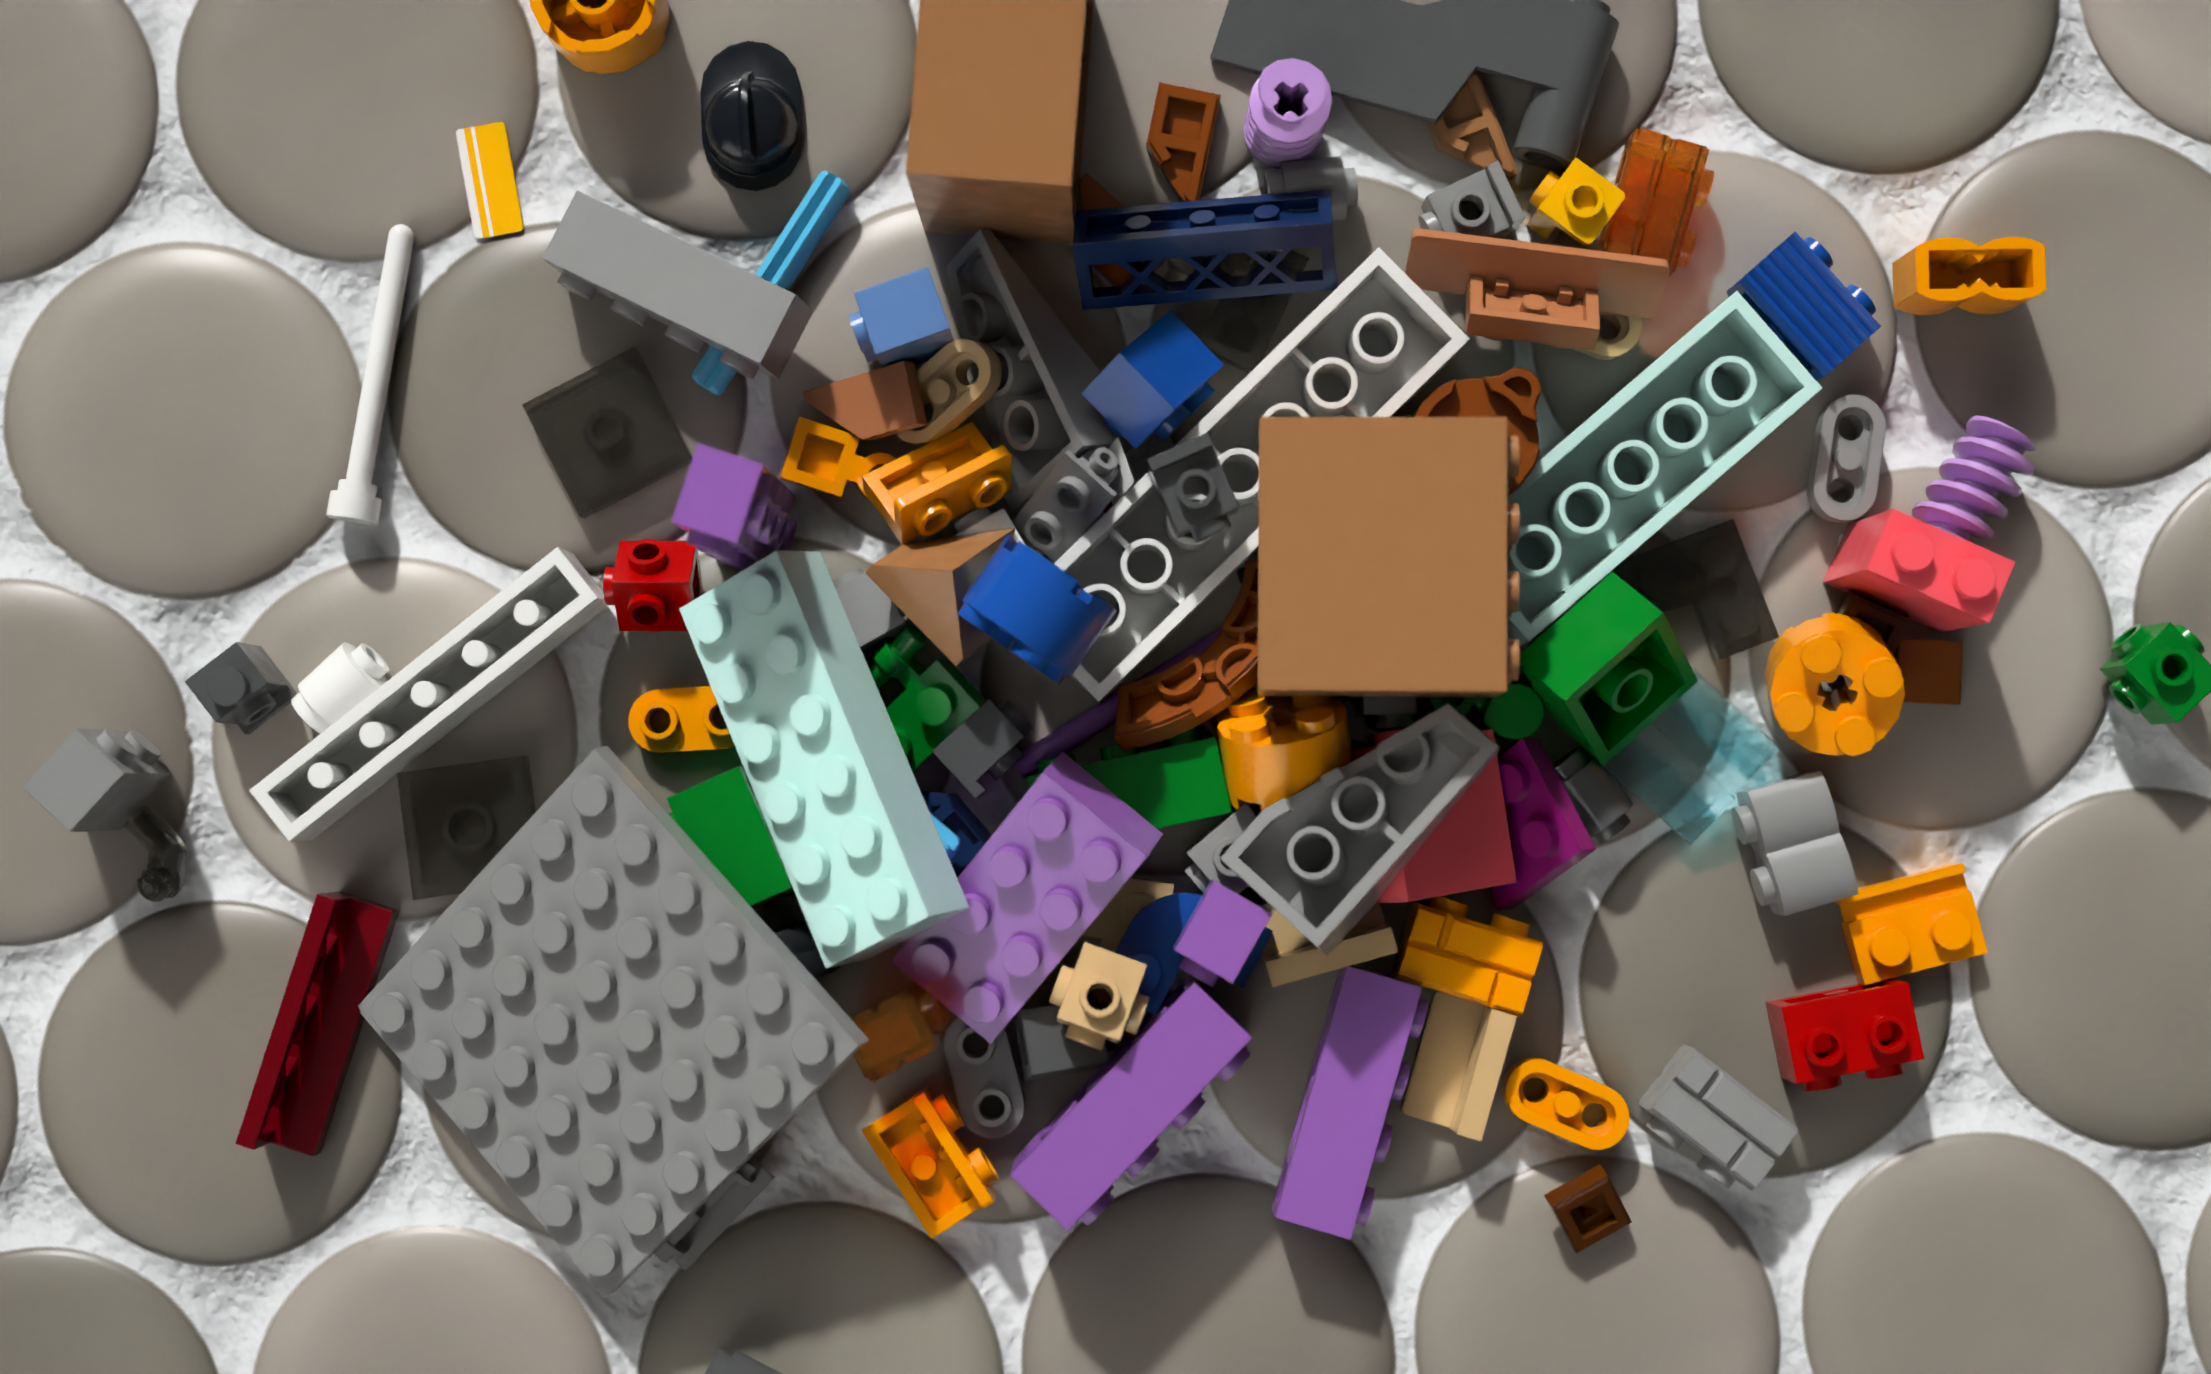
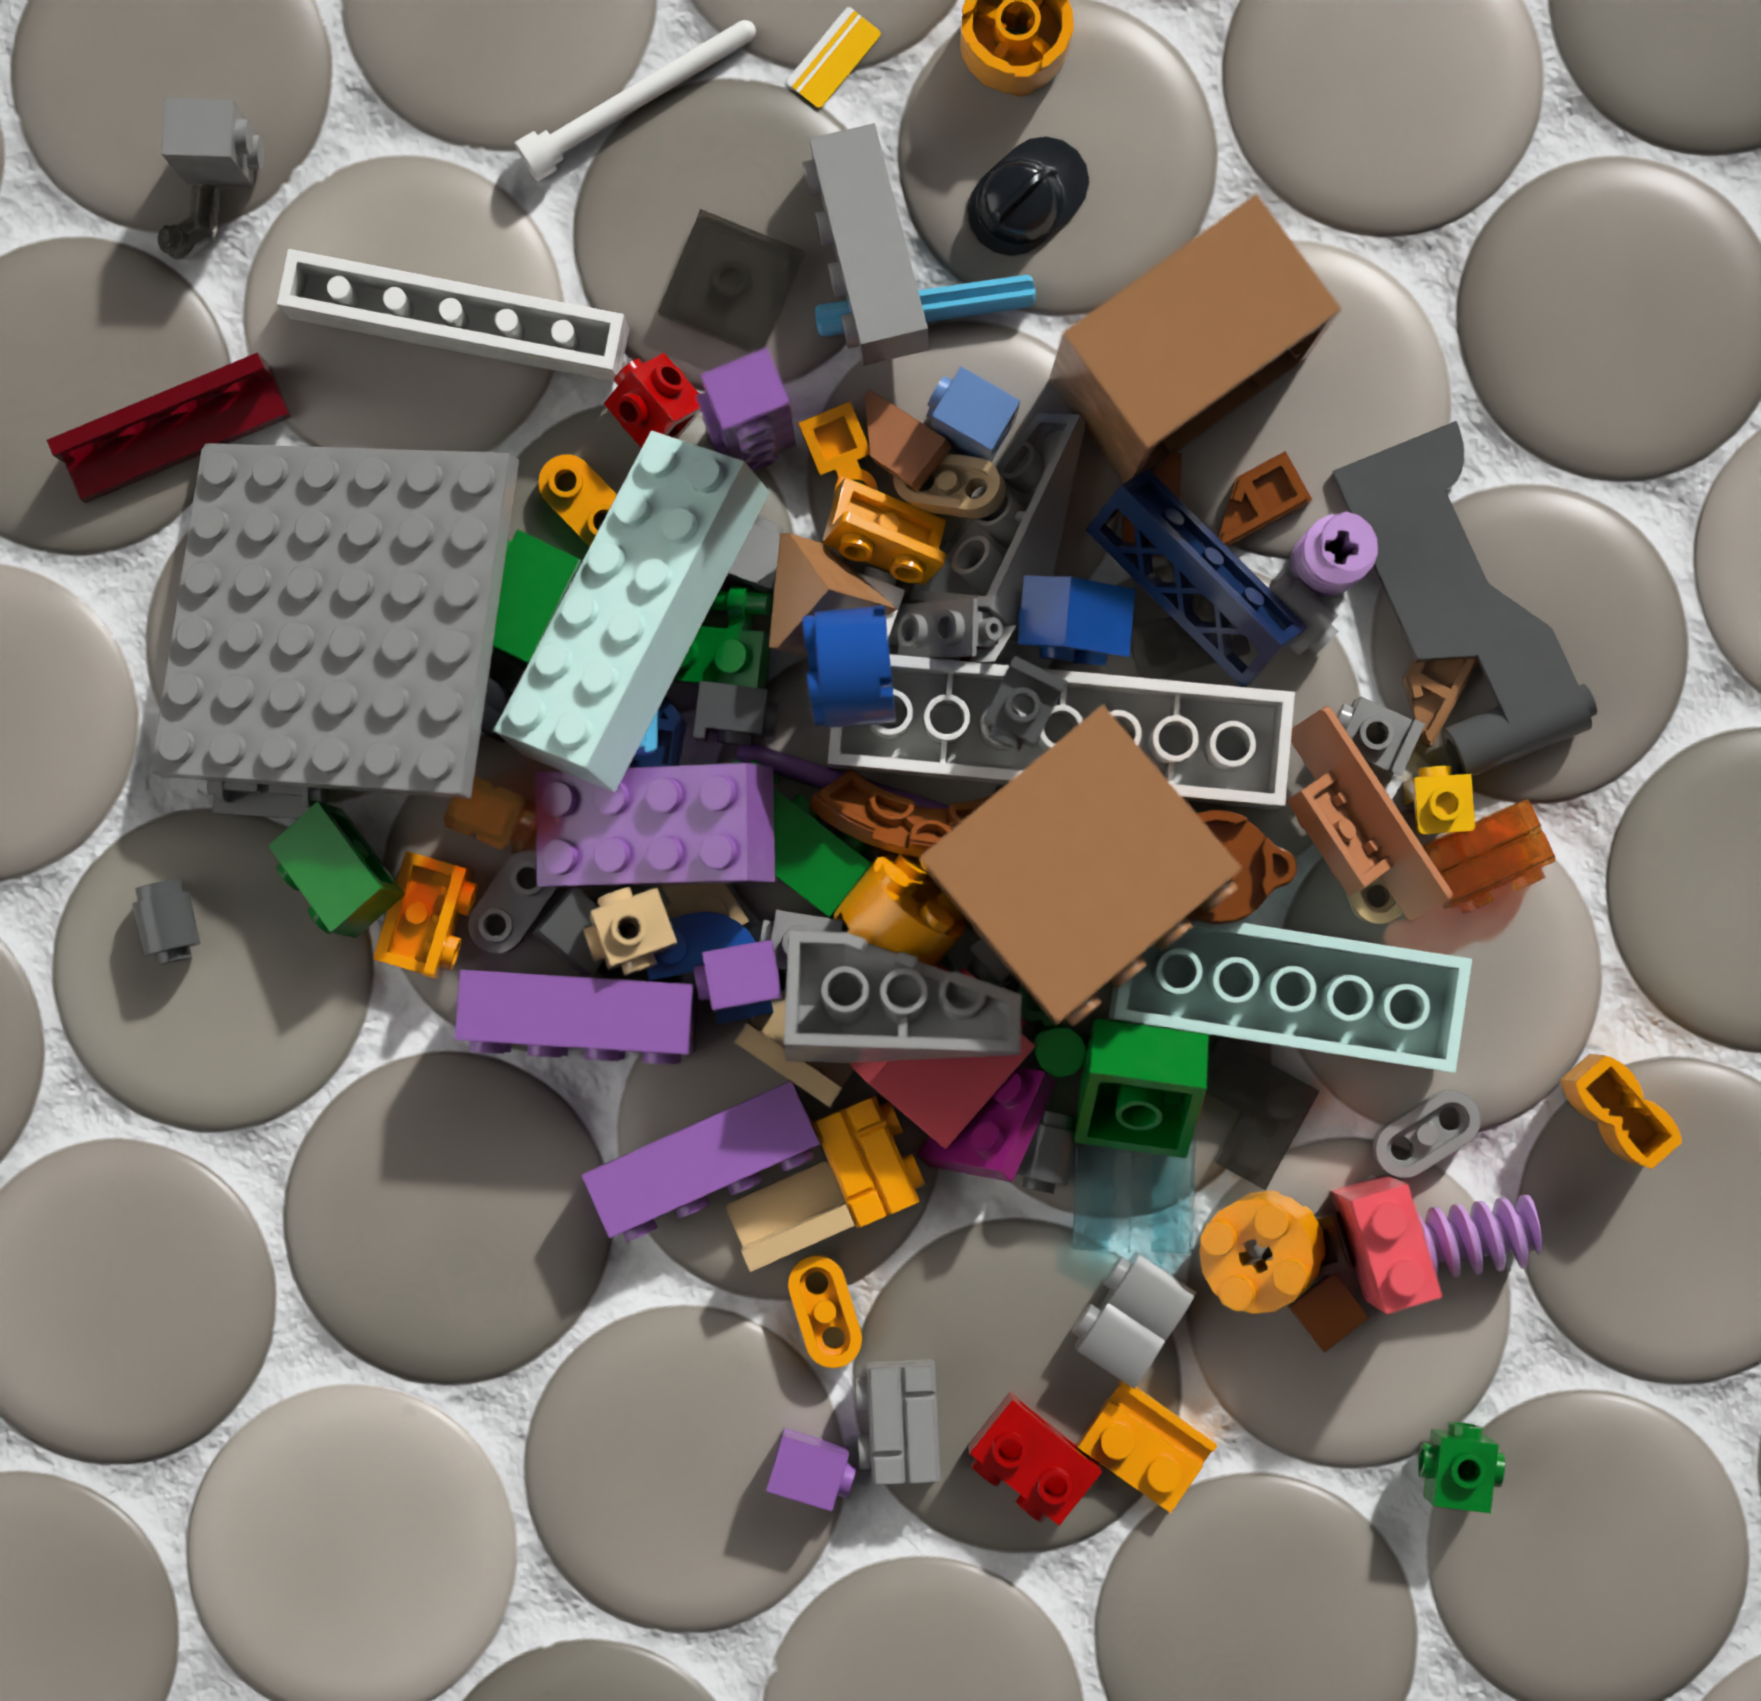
camera: 45 degrees right, 0 degrees up
(242, 687) = (352, 185): dark grey brick -> none
(339, 685) = (408, 248): white brick -> none
(461, 820) = (387, 406): clear smoke plate -> none
(827, 1208) = (335, 871): none -> green brick
(1588, 1208) = (766, 1386): reddish brown tile -> none
(1693, 1232) = (811, 1470): none -> medium lavender brick
(1808, 304) = (1506, 1017): blue brick -> none

